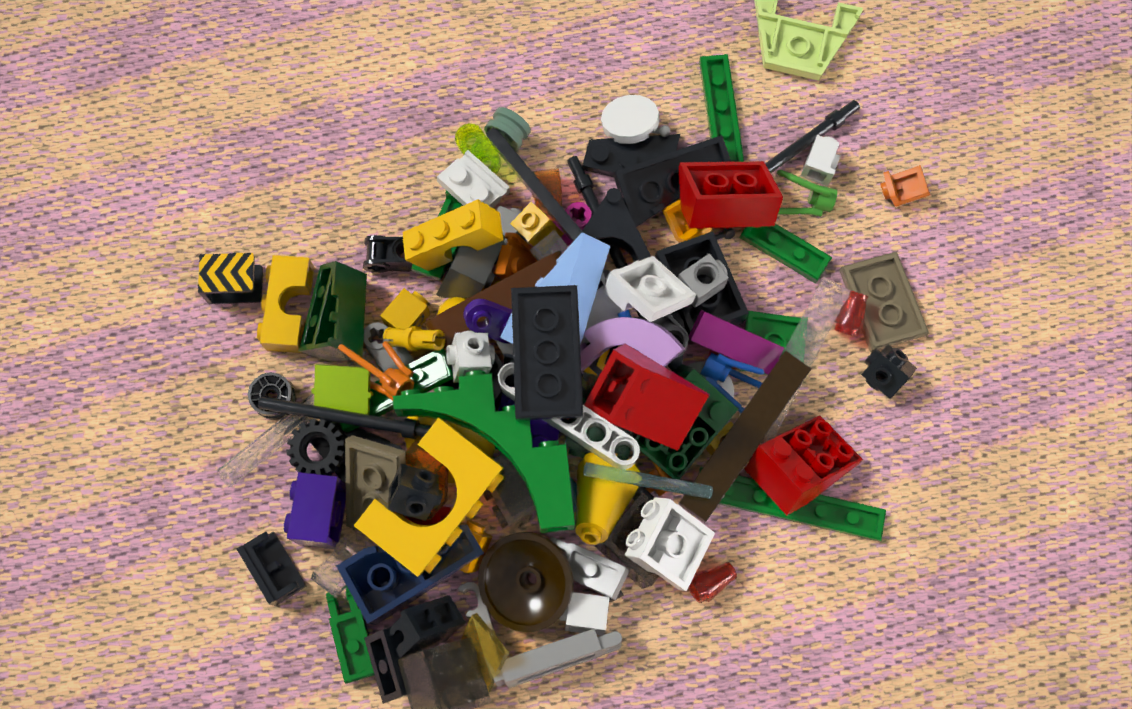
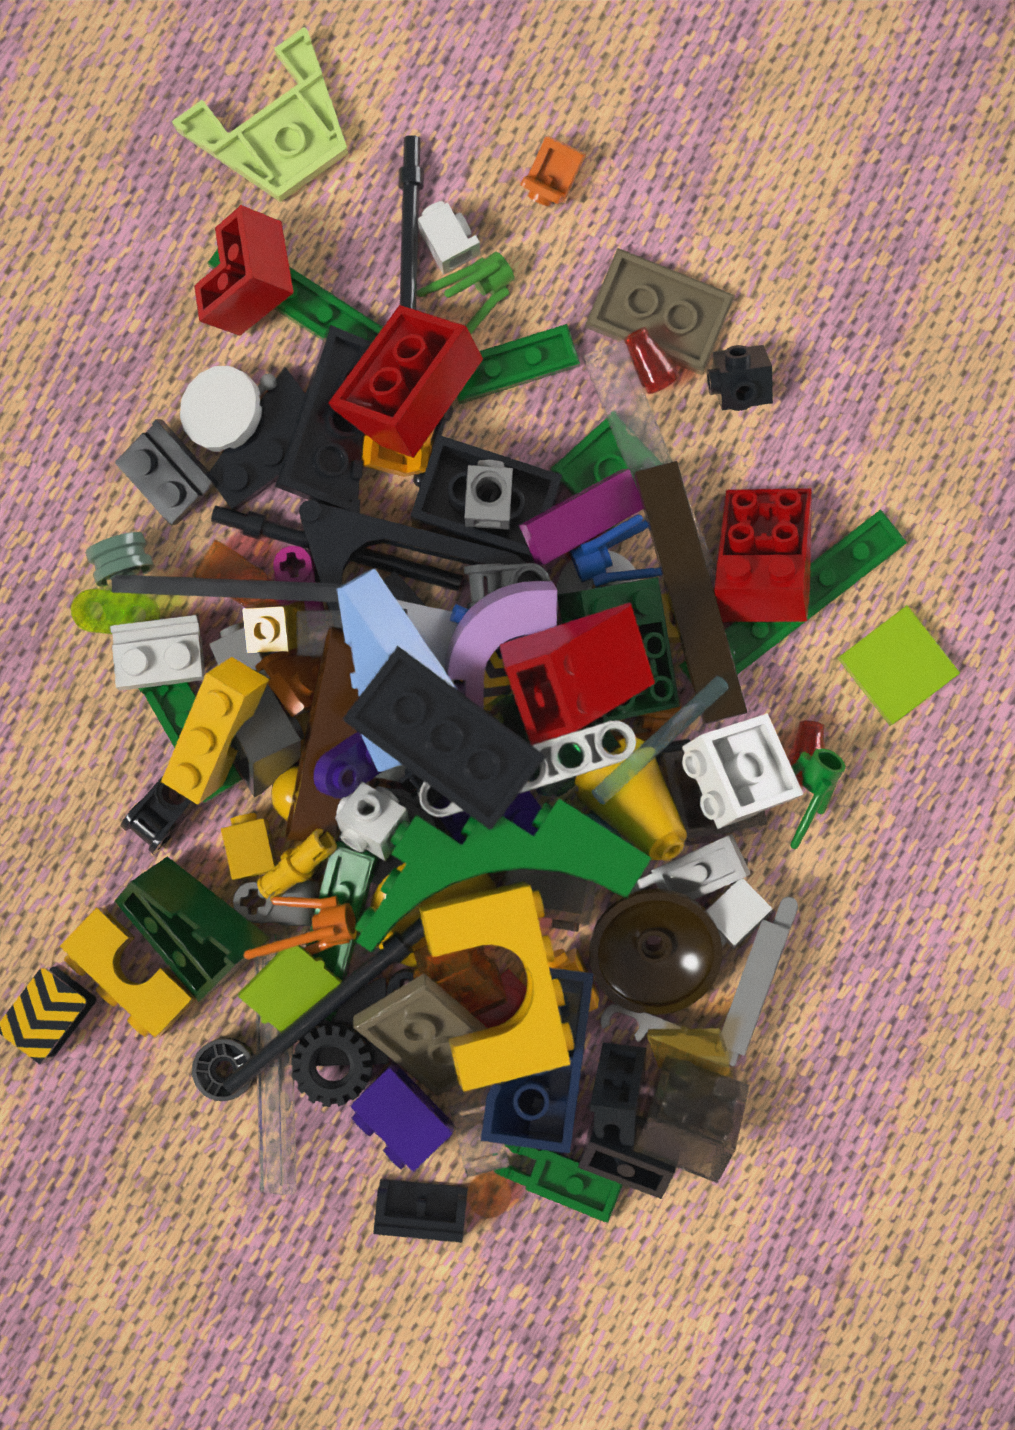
camera: 50 degrees left, 10 degrees up
(310, 601) = (489, 1194): none -> clear orange tile
(414, 492) = (479, 999): black brick -> none
(573, 119) = (166, 472): none -> plate
(647, 288) = (454, 566): white plate -> none
(707, 594) = (819, 777): none -> green plant
(710, 75) = (250, 274): none -> red brick
(807, 594) = (898, 665): none -> lime tile

